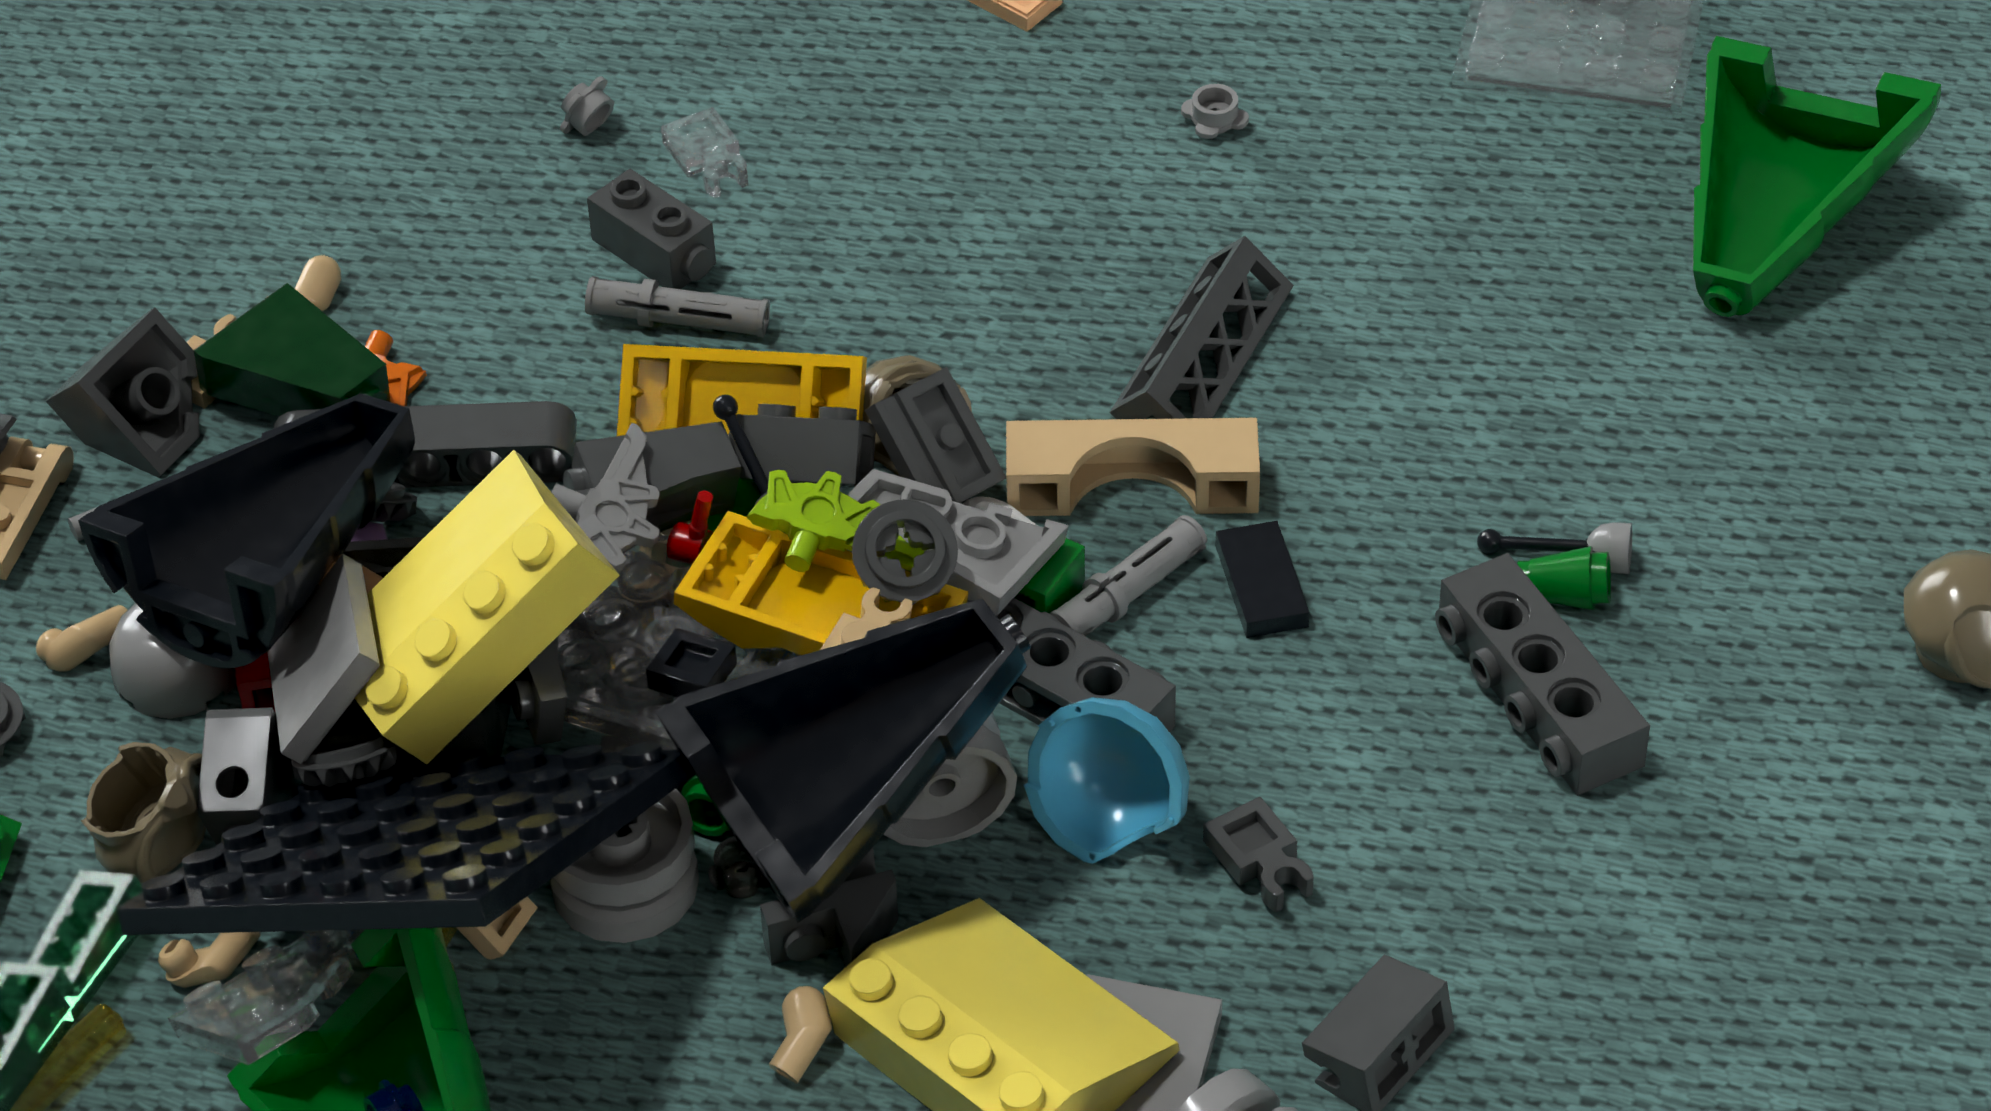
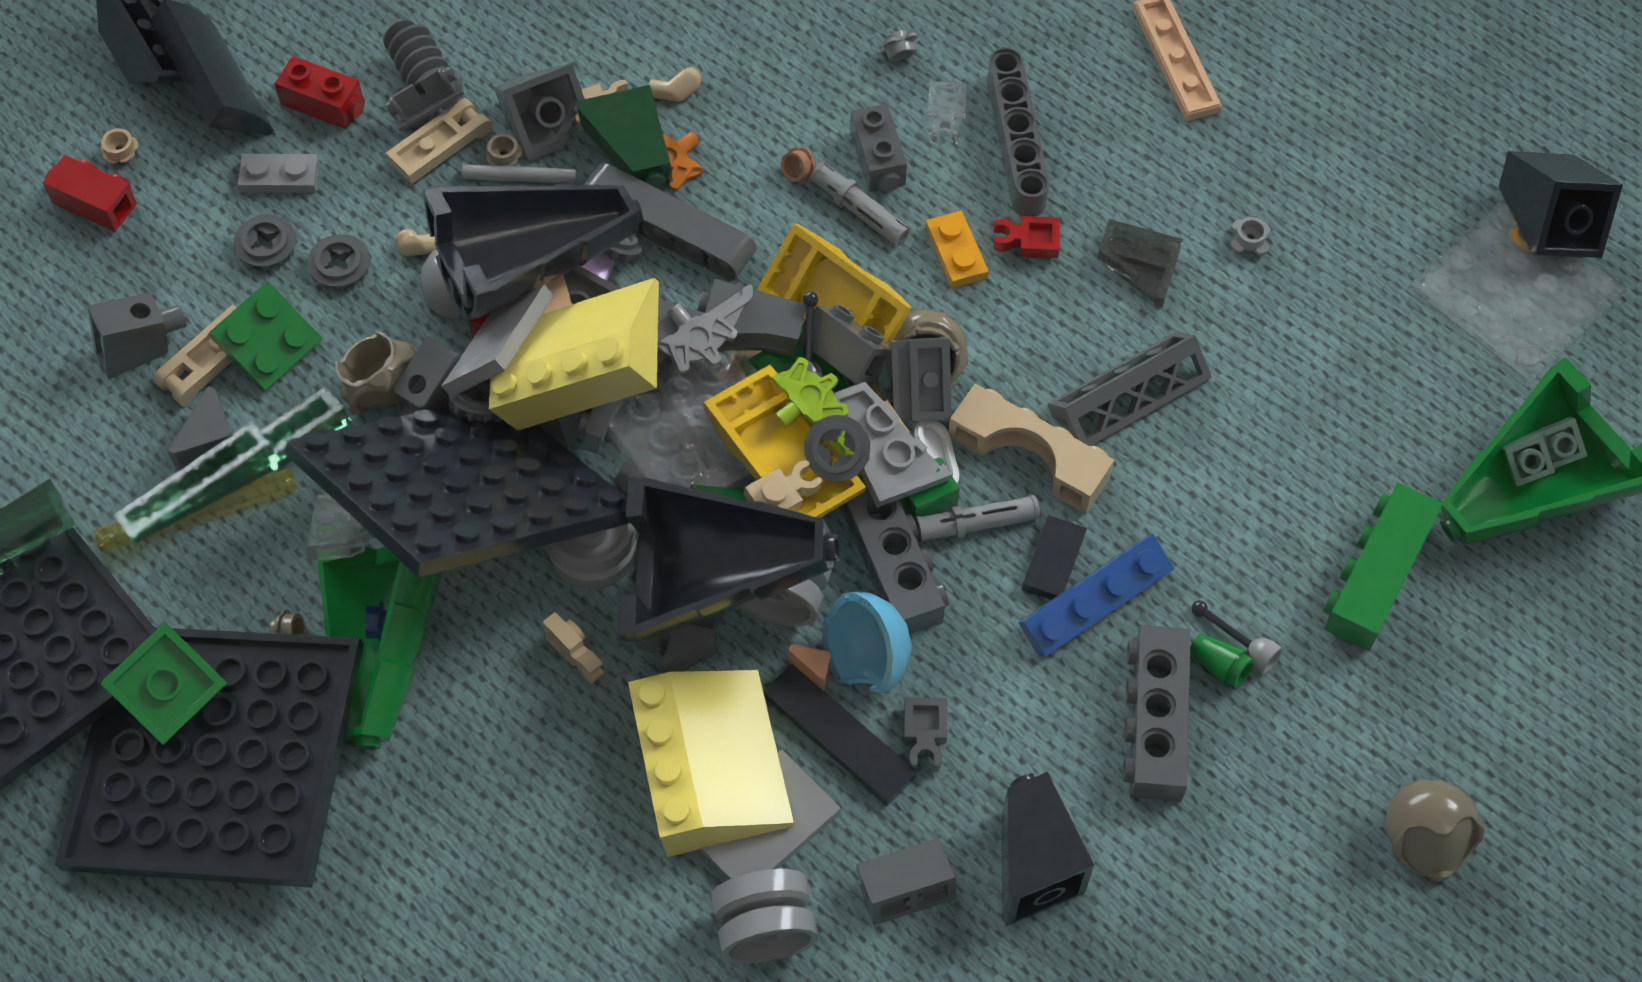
camera: 30 degrees right, 15 degrees up
(115, 474) = (503, 143): none -> dark tan plate
(543, 302) = (798, 165): none -> nougat plate
(689, 539) = (746, 364): red hand -> none
(690, 663) = (689, 449): black tile -> none
(691, 1004) = (568, 641): none -> tan plate
(806, 1028) = (615, 695): tan arm -> none
(825, 131) = (1017, 132): none -> dark grey beam
(847, 300) = (956, 249): none -> light orange plate
(937, 235) = (1034, 236): none -> red plate
(1049, 855) = (812, 662): none -> nougat slope
(1098, 196) = (1141, 257): none -> clear smoke wing
(1148, 920) = (840, 734): none -> black tile
(1351, 590) = (1096, 595): none -> blue plate
(1525, 892) = (1039, 850): none -> black slope
(1677, 376) = (1382, 566): none -> green brick
(1764, 160) = (1544, 450): none -> sand green slope

